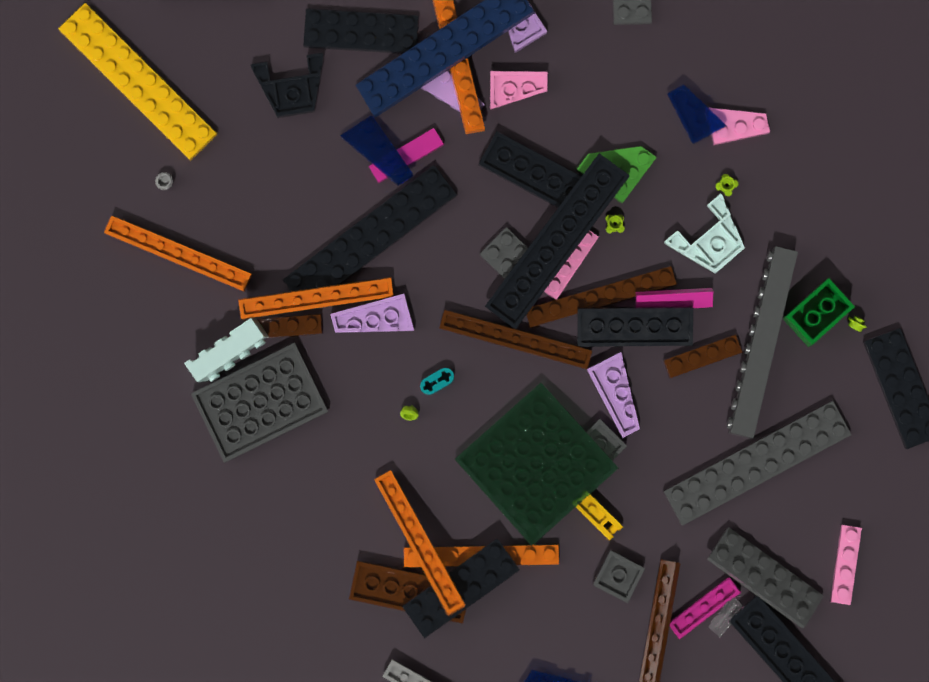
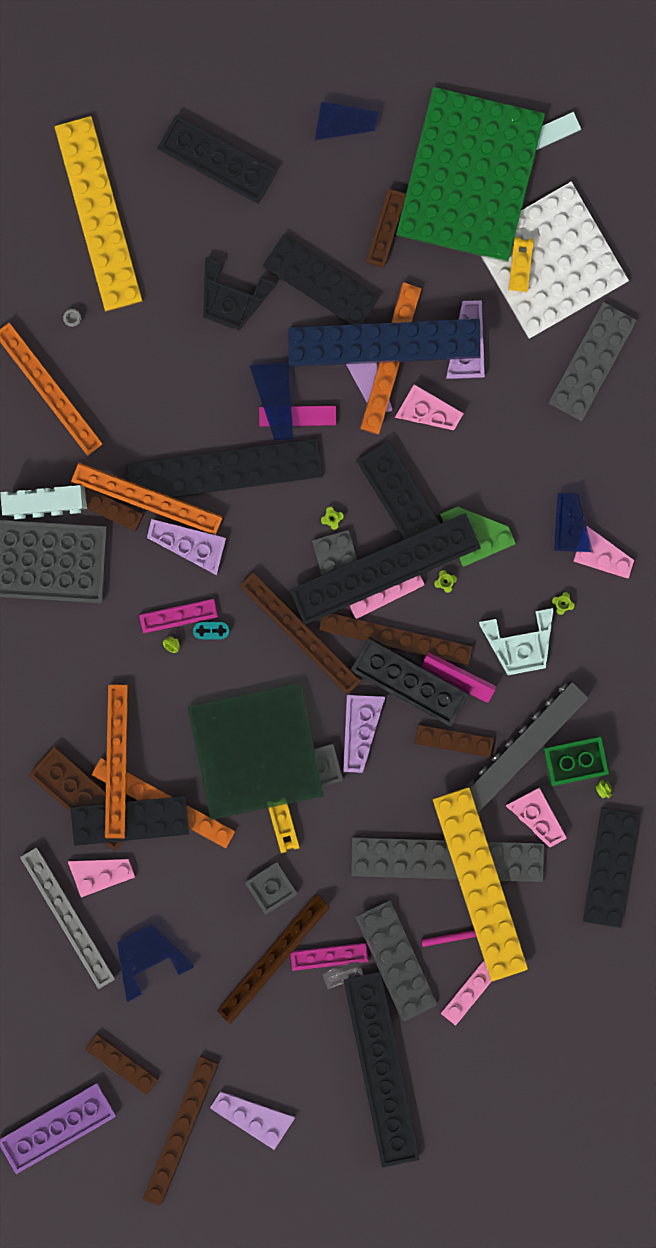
camera: 30 degrees right, 5 degrees up
(401, 385) = (178, 616): none -> dark pink tile
(461, 651) = (100, 874): none -> bright pink wing
(482, 221) = (337, 517): none -> lime plate
(799, 467) = (480, 884): none -> yellow plate
(806, 524) = (448, 938): none -> dark pink bar
(815, 380) = (537, 815): none -> bright pink wing

